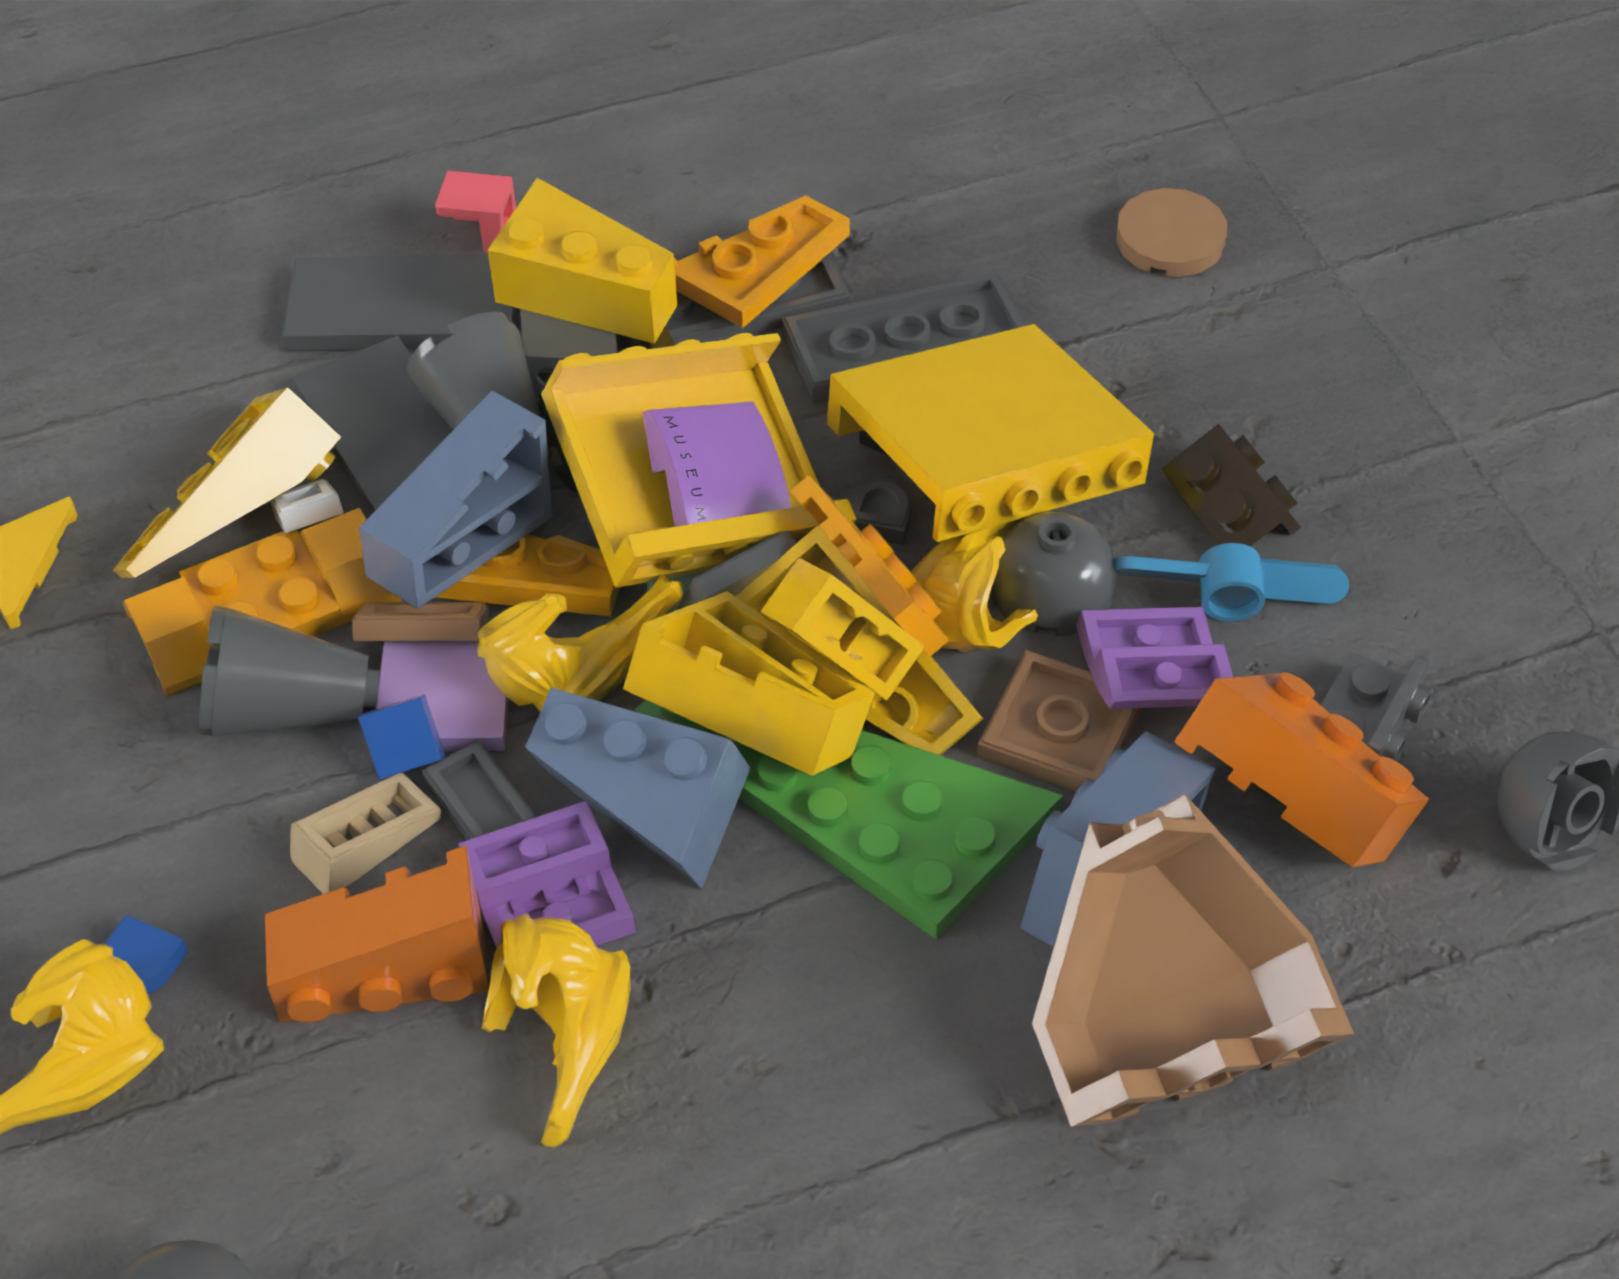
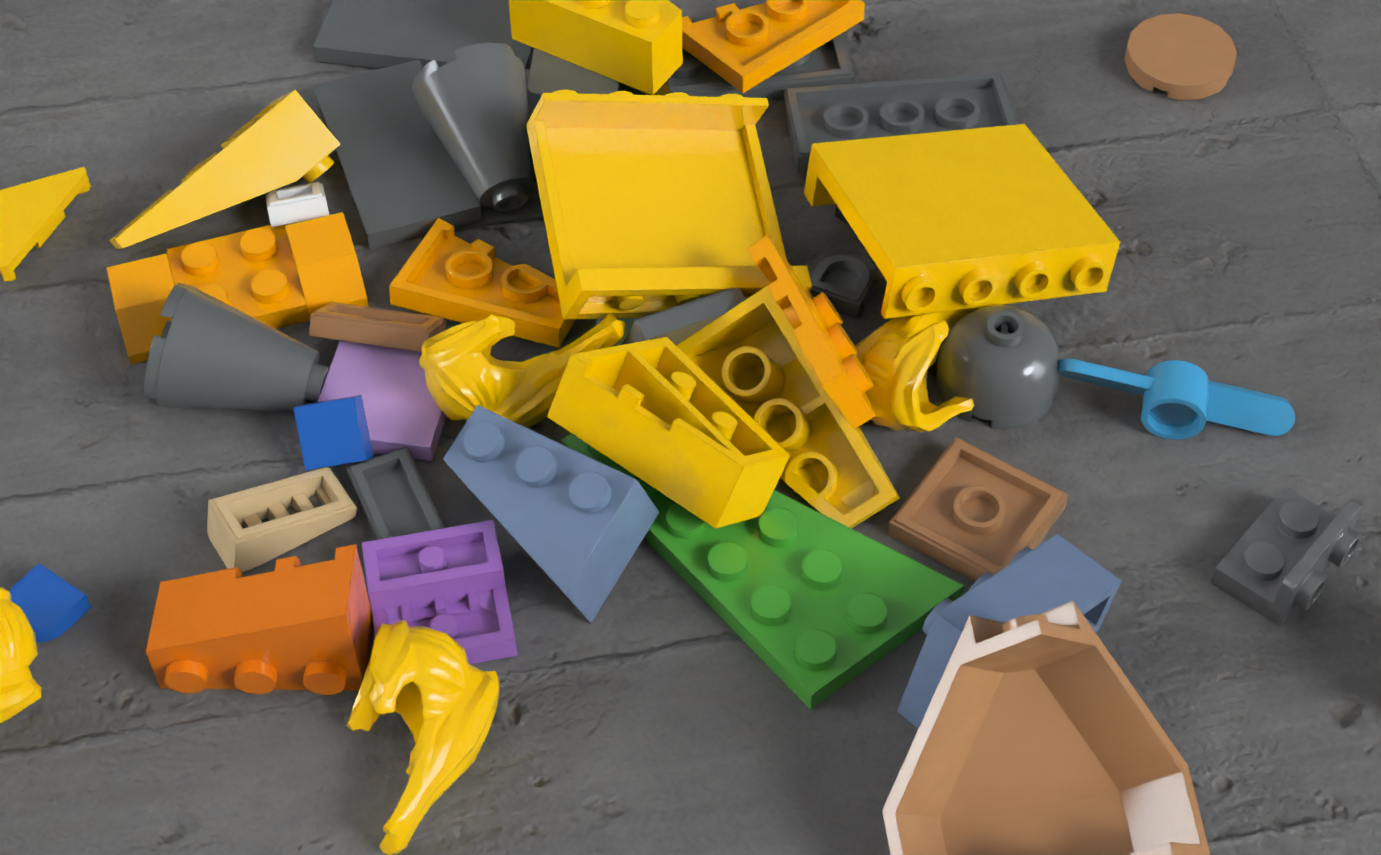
camera: 10 degrees right, 0 degrees up
(461, 503) = (434, 219): sand blue wedge -> none
(715, 461) = (683, 211): medium lavender slope -> none
(842, 627) = (769, 388): yellow brick -> none
(1151, 656) = (1084, 463): medium lavender slope -> none
(1227, 491) = (1188, 309): dark brown bracket -> none
(1309, 762) = (1218, 589): orange wedge -> none

